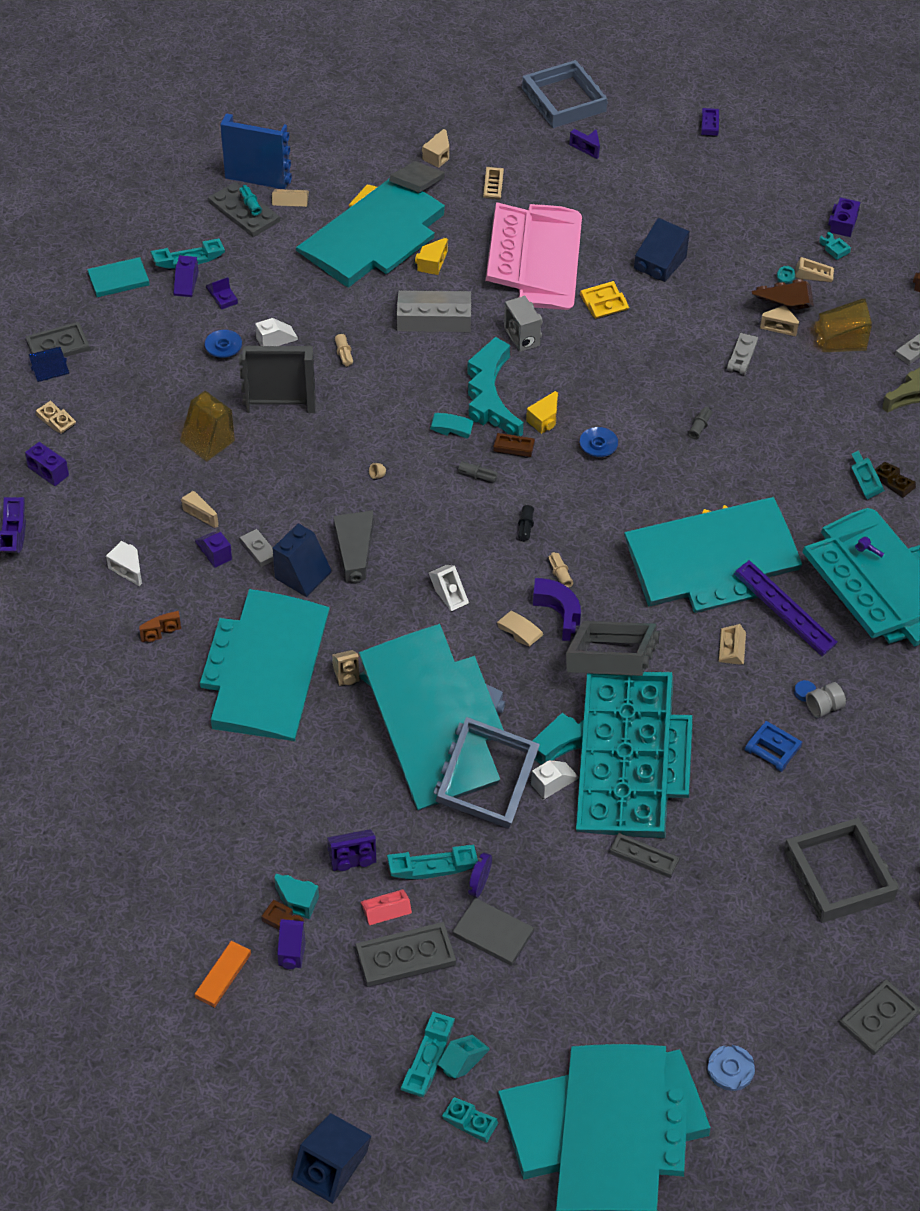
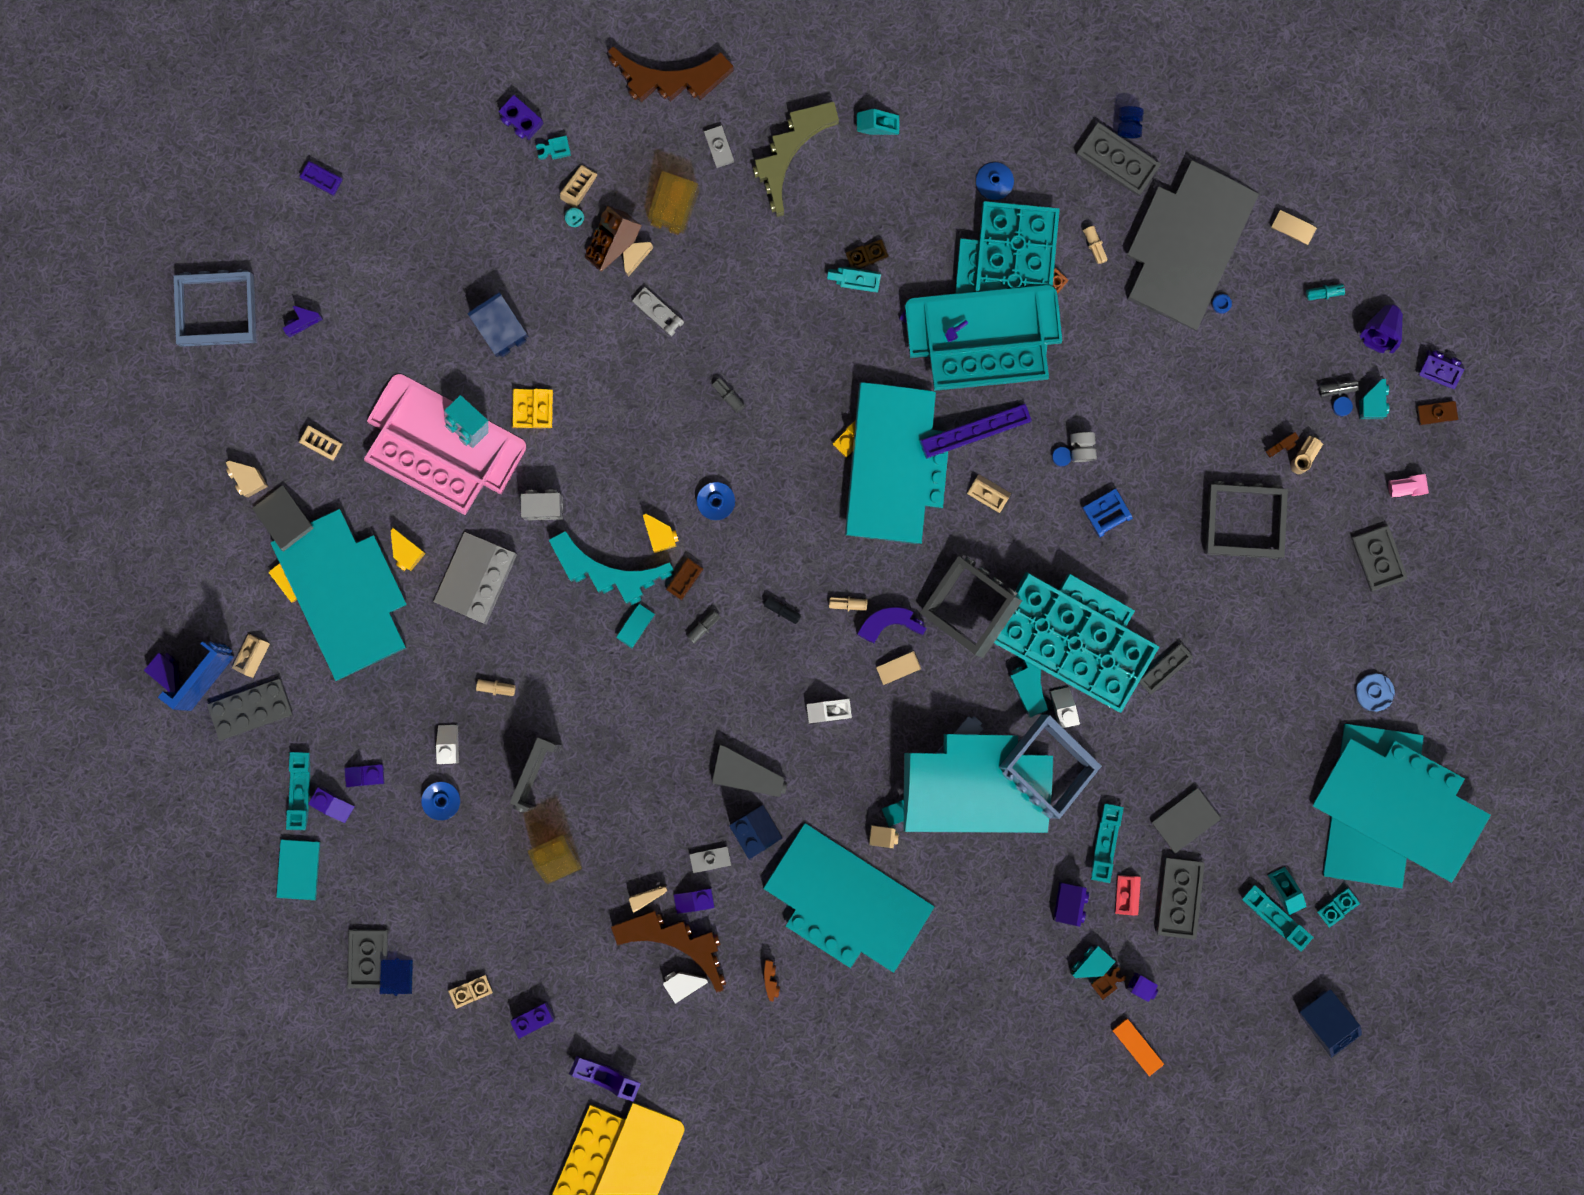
camera: 70 degrees left, 35 degrees up
(174, 543) = (700, 948): none -> reddish brown arch
(250, 200) = (251, 702): teal axle -> none
(377, 470) = (664, 718): tan hinge -> none
(480, 875) = (1136, 809): dark purple tile -> none
(565, 251) = (466, 422): none -> teal brick

